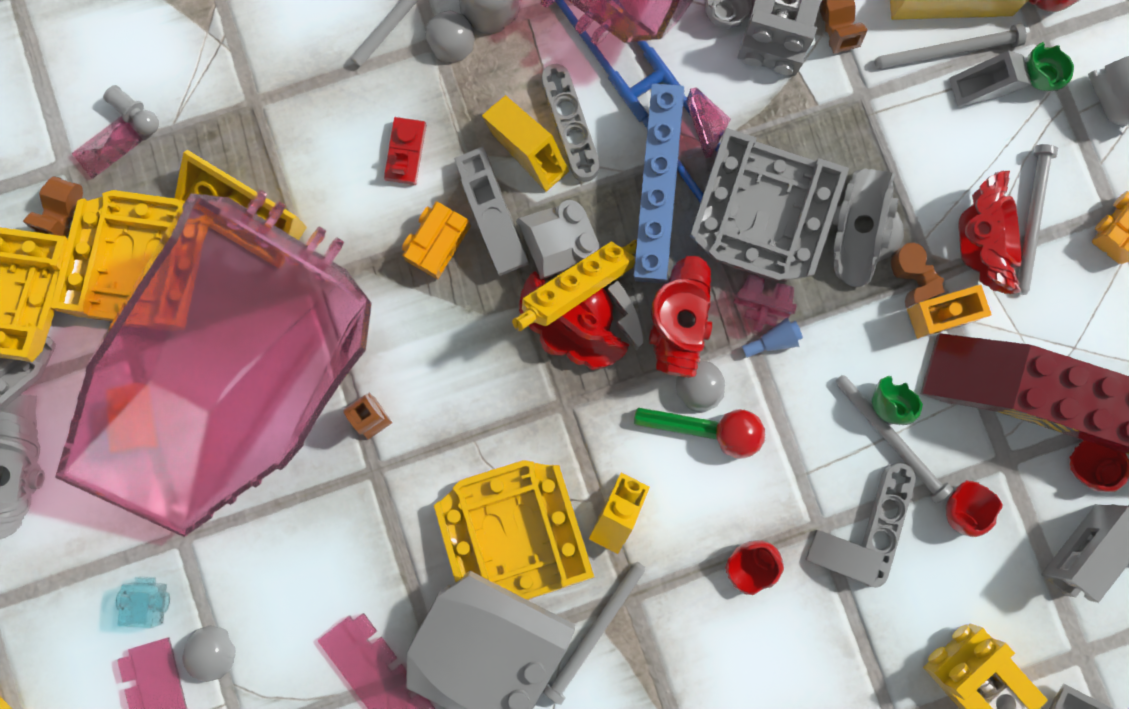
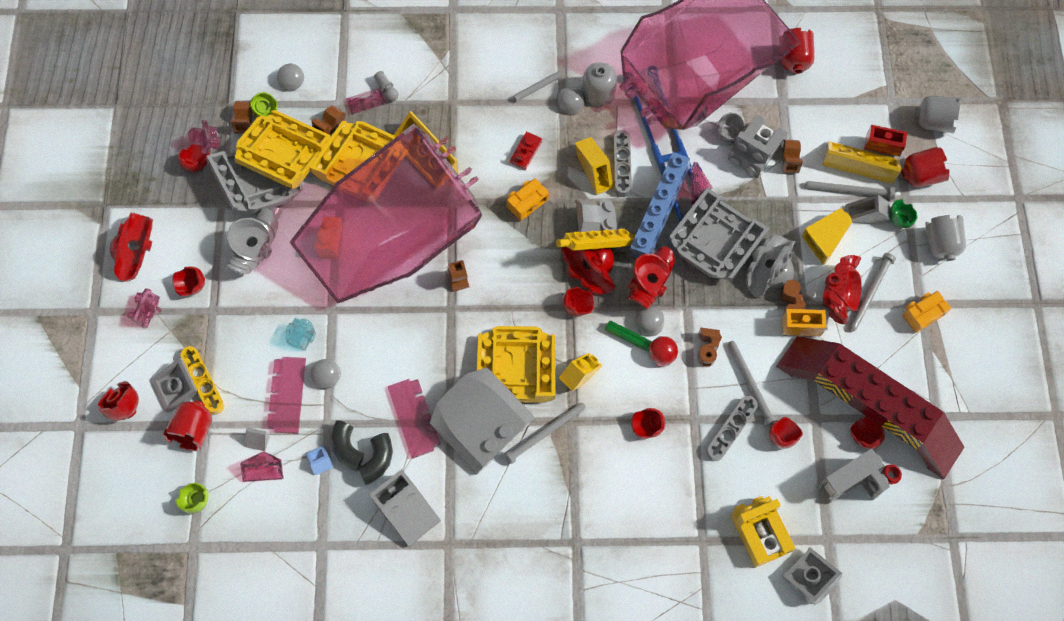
camera: 20 degrees right, 15 degrees down
(491, 211) = (563, 193): light grey slope -> none
(577, 395) = (578, 302): none -> red hair
(630, 323) = (619, 272): light grey slope -> none
(779, 304) = (700, 289): clear pink hips -> none
(781, 336) = (703, 308): medium blue cone -> none
(809, 414) = (707, 353): none -> dark orange leg
(845, 557) = (702, 436): light grey slope -> none
(896, 402) = (757, 362): green hair -> none
(940, 143) = (826, 234): none -> yellow slope

